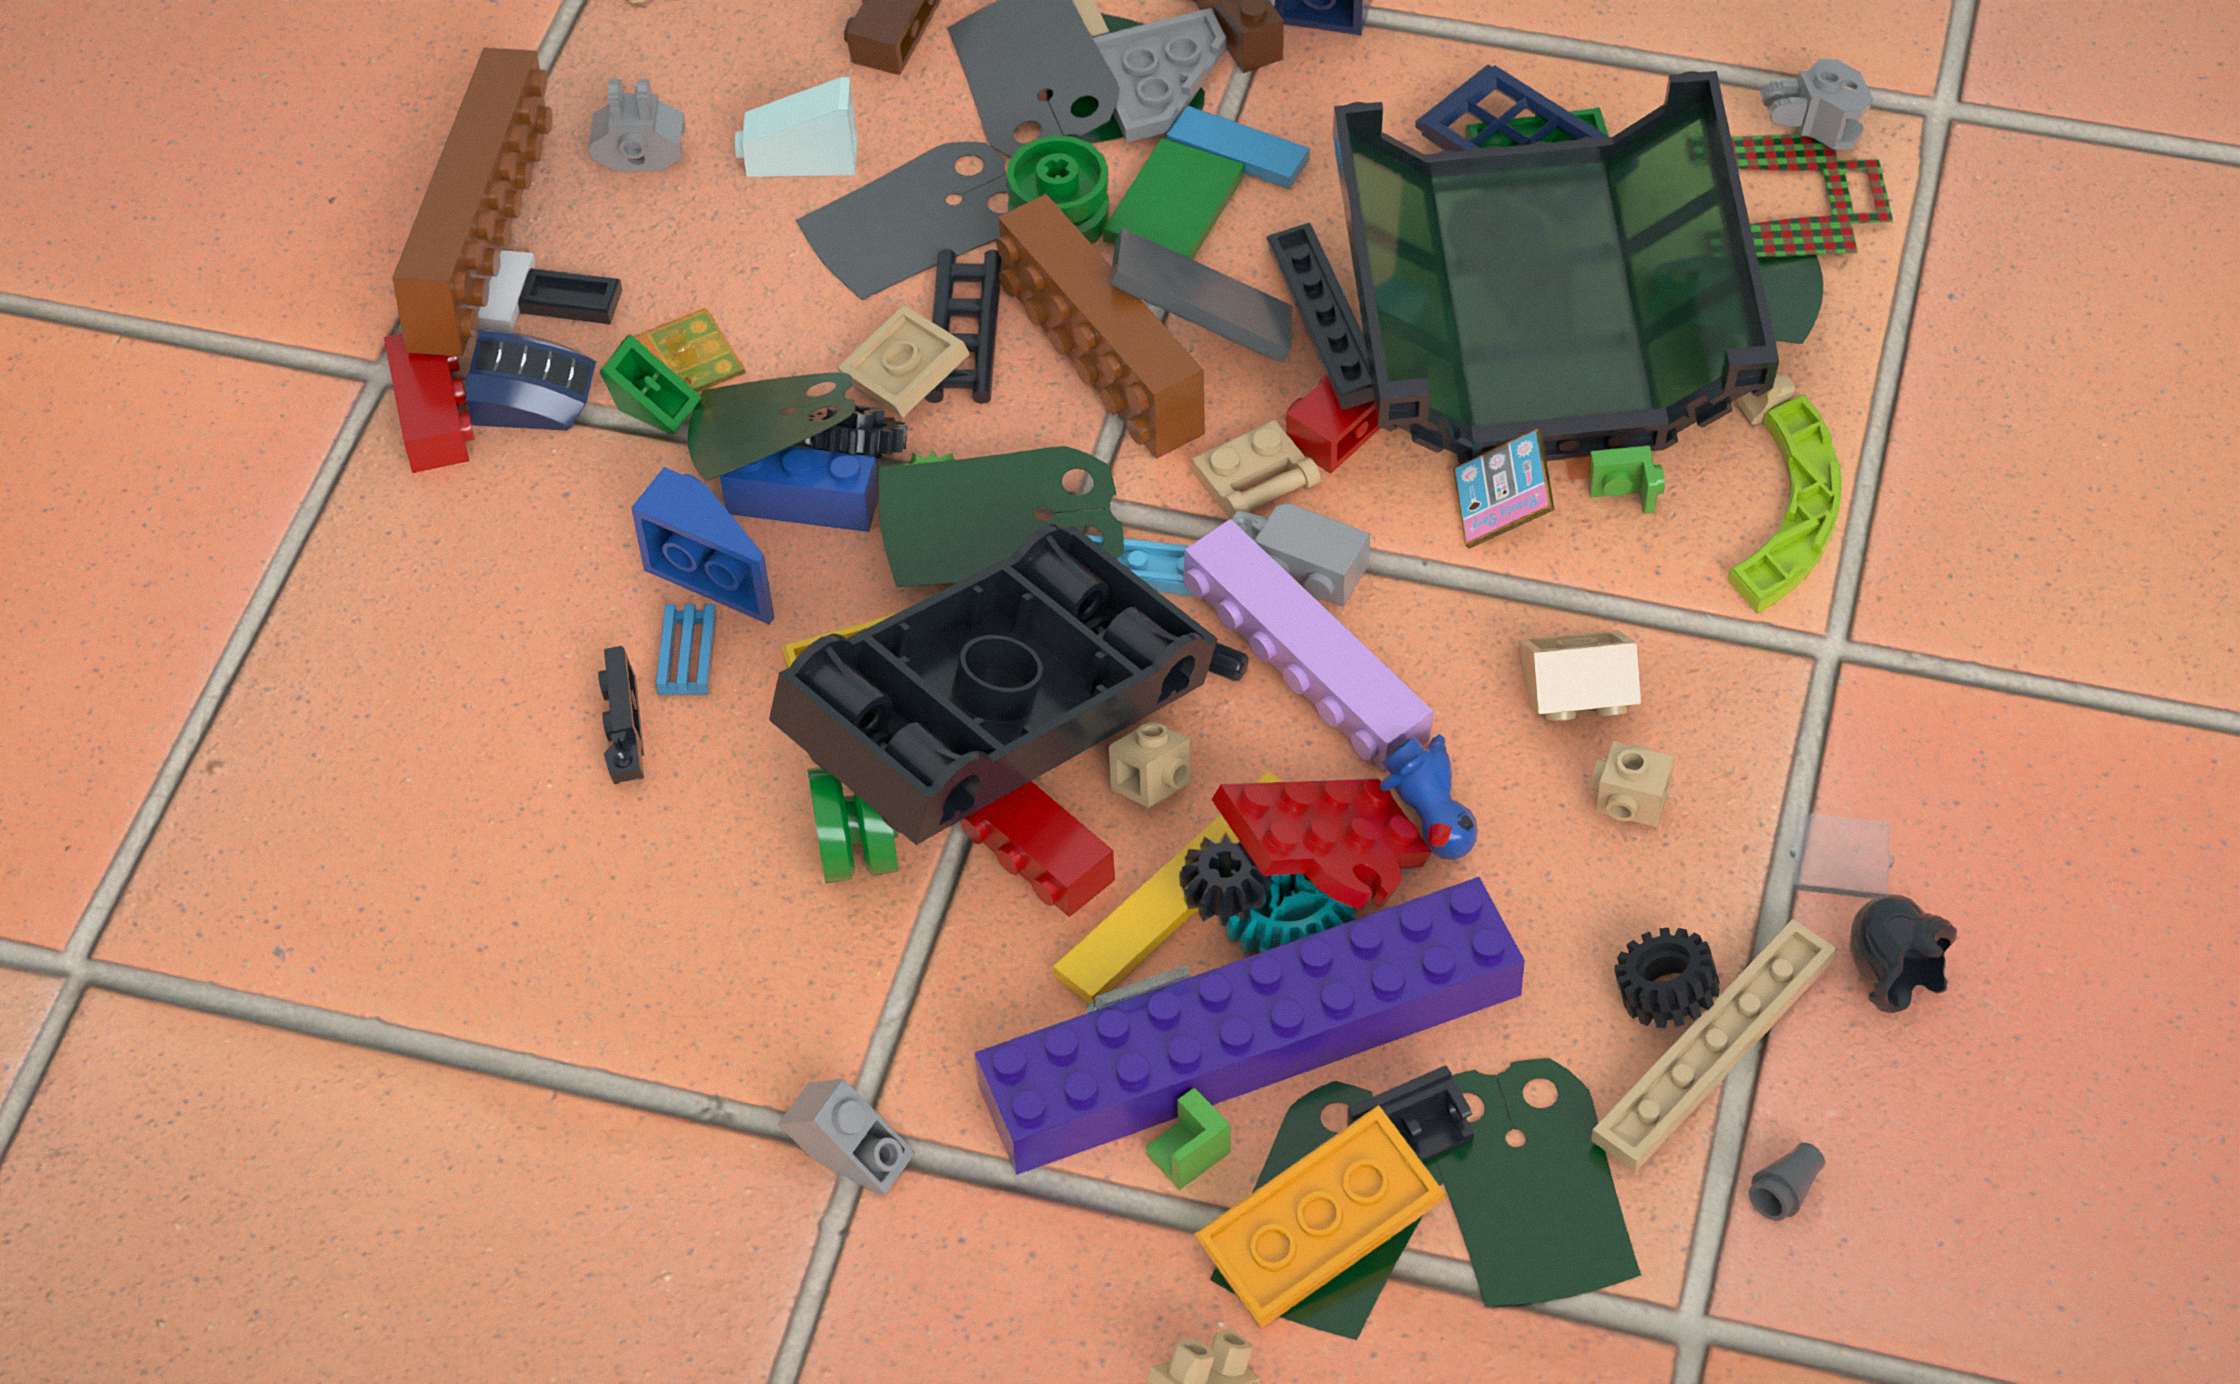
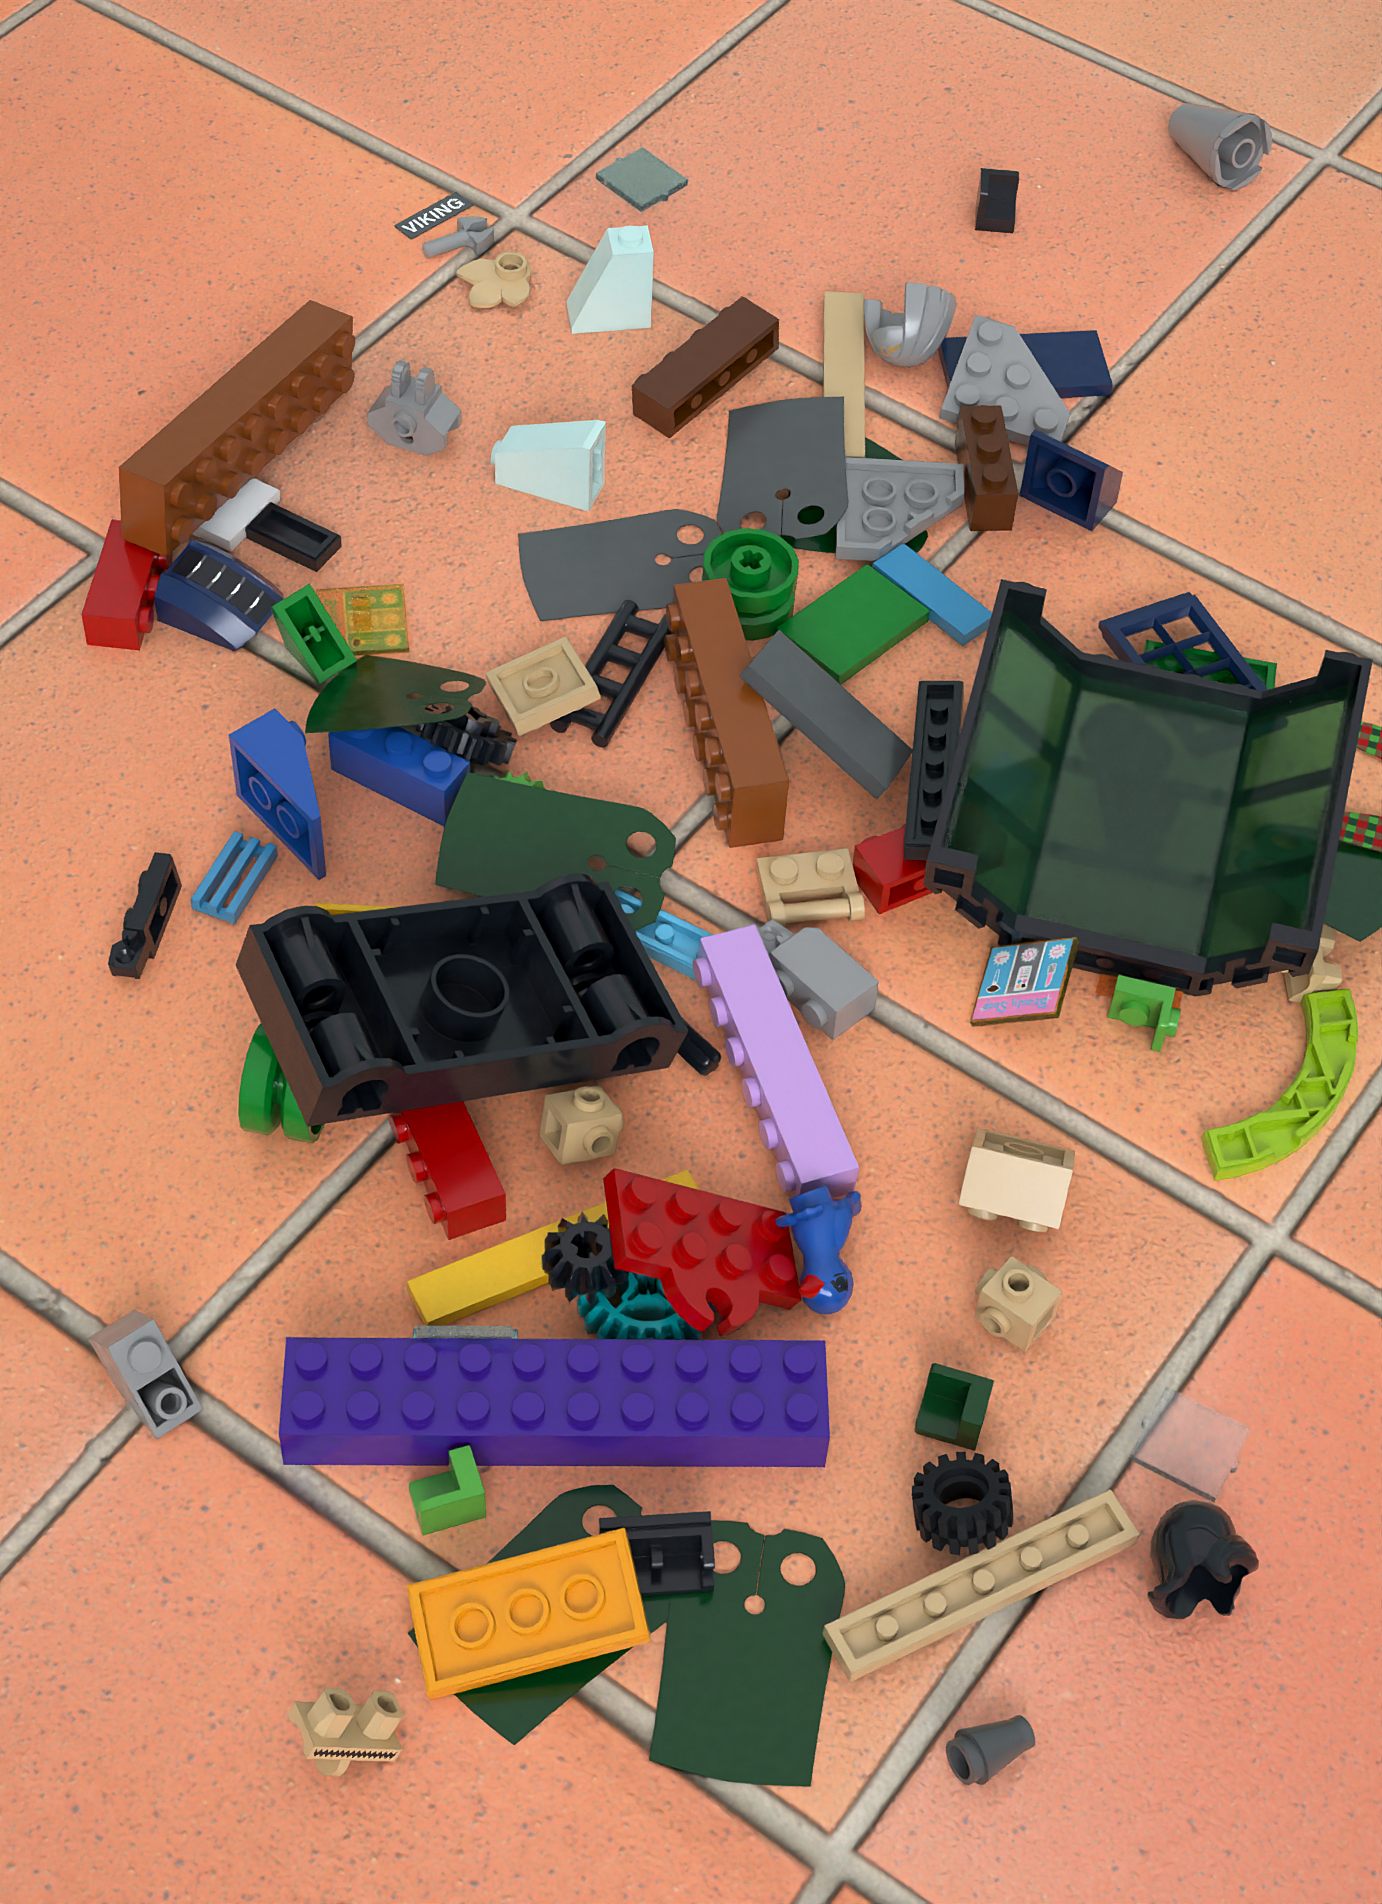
camera: 15 degrees right, 0 degrees up
(1617, 897) = (953, 1406): none -> dark green panel

